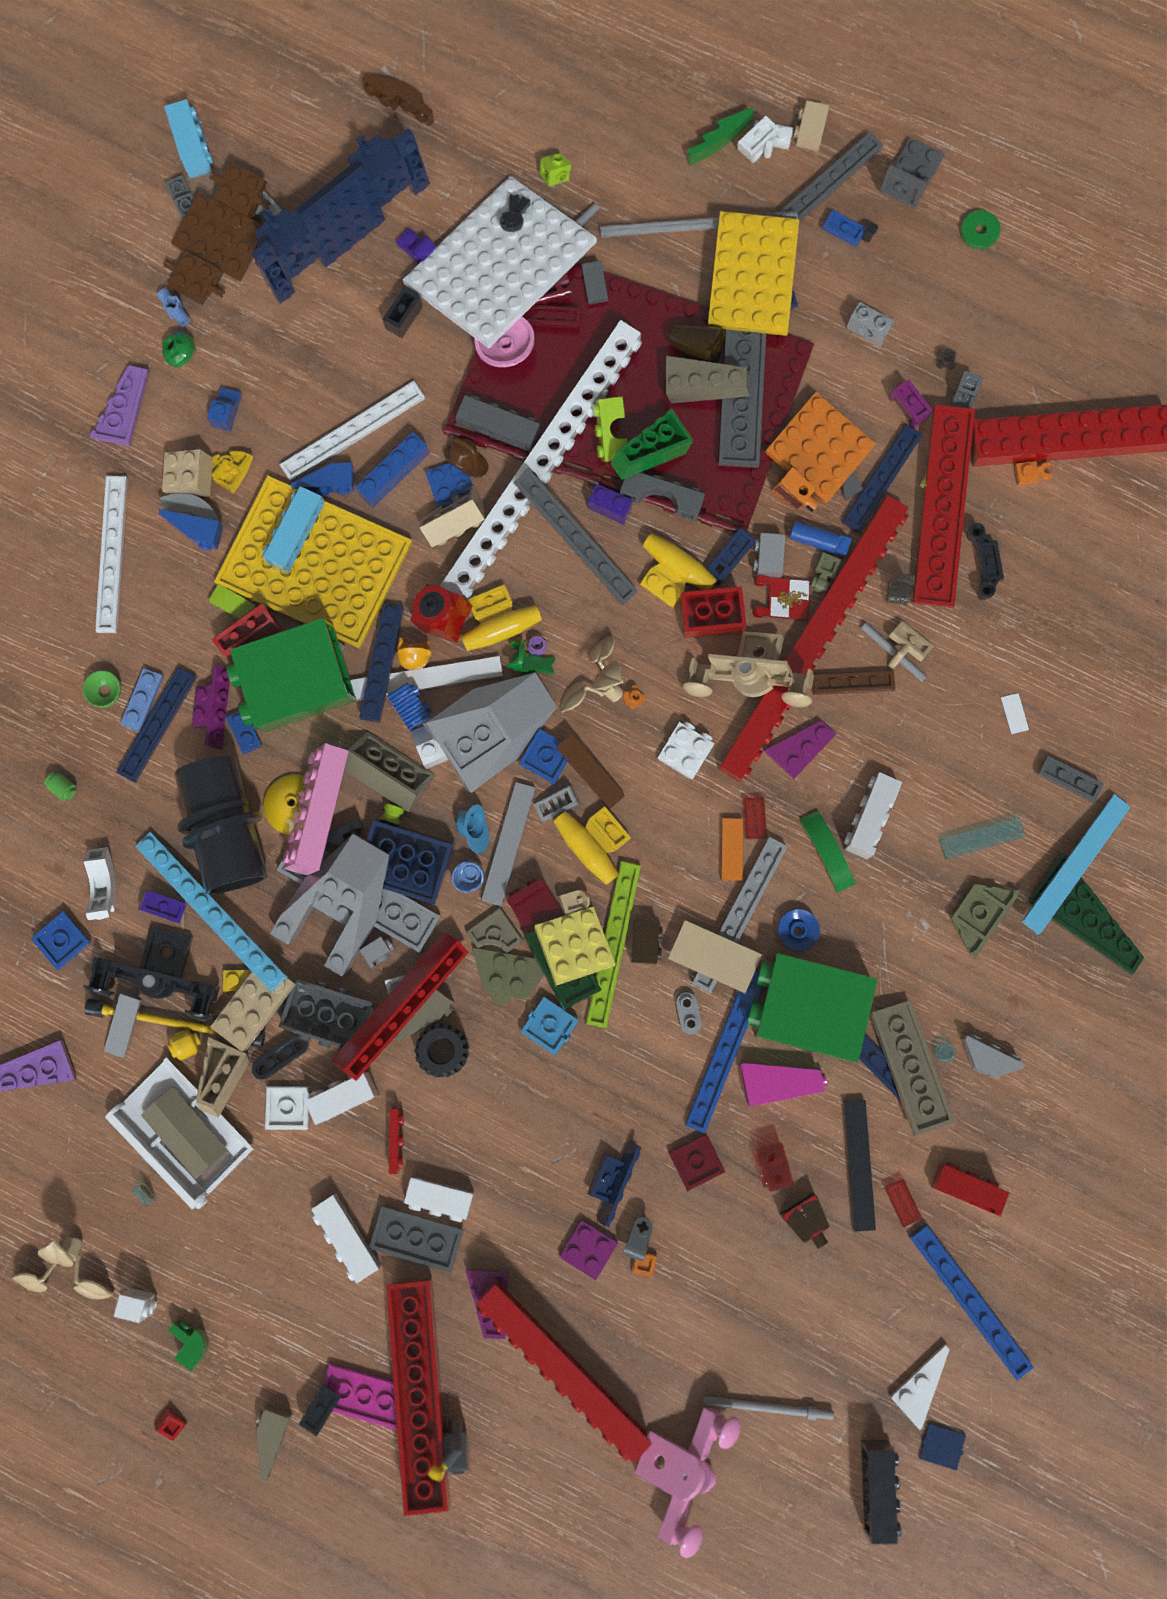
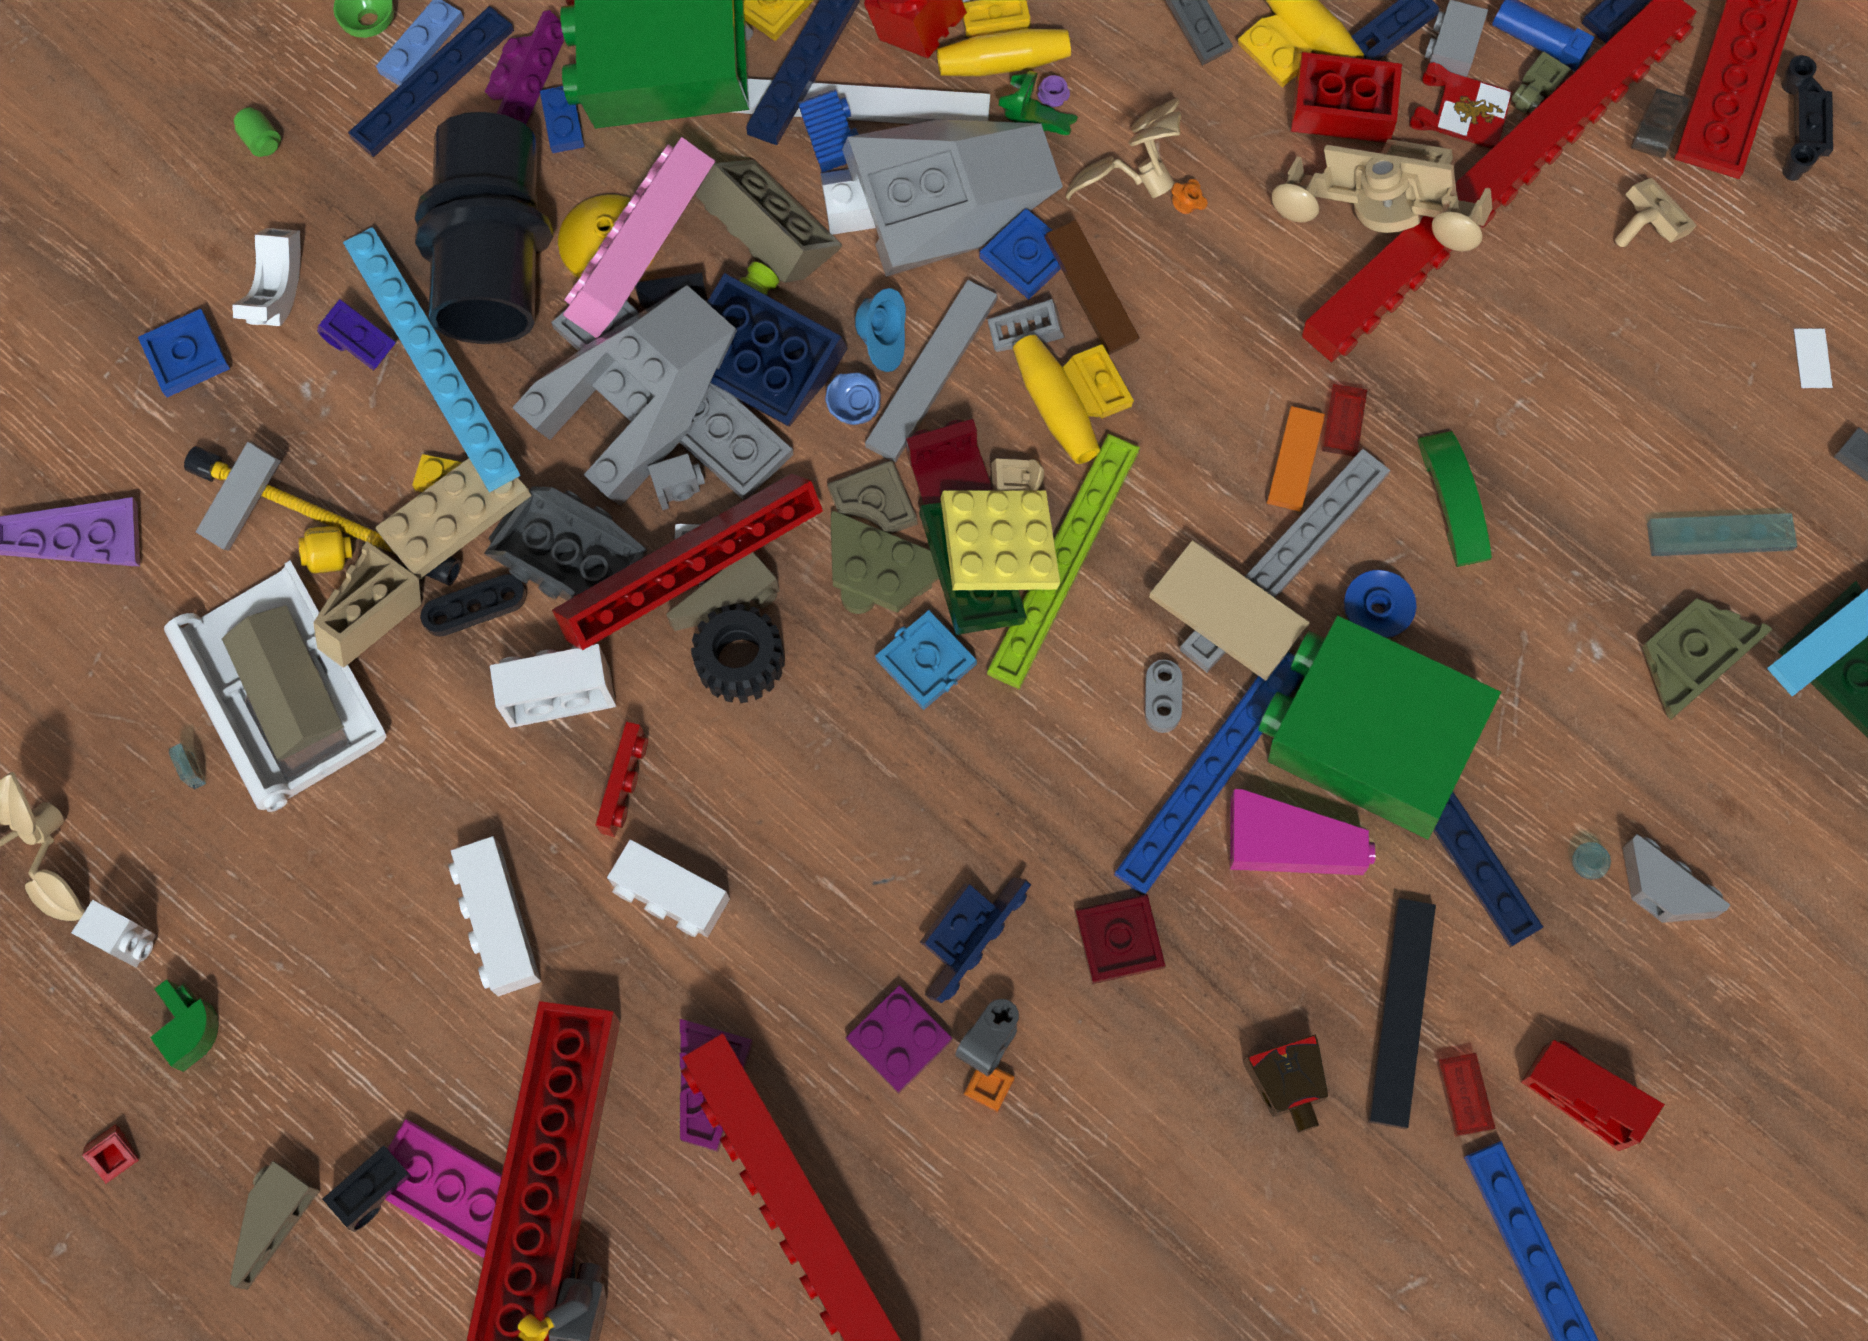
camera: 15 degrees right, 10 degrees down
(158, 975) = (313, 436): black piece -> none
(287, 1107) = (458, 690): white tile -> none
(413, 655) = (855, 59): light orange helmet -> none
(416, 1239) = (612, 947): dark grey plate -> none
(645, 942) = (1118, 564): dark brown brick -> none
(686, 750) = (1256, 292): white plate -> none
(774, 1167) = (1252, 976): clear red brick -> none
(800, 749) = (1443, 332): magenta wing -> none
(853, 682) = (1552, 253): reddish brown tile -> none
(872, 815) = (1542, 455): white wedge -> none
(892, 651) = (1623, 217): light grey bar -> none
(912, 1068) = (1529, 869): dark tan plate -> none

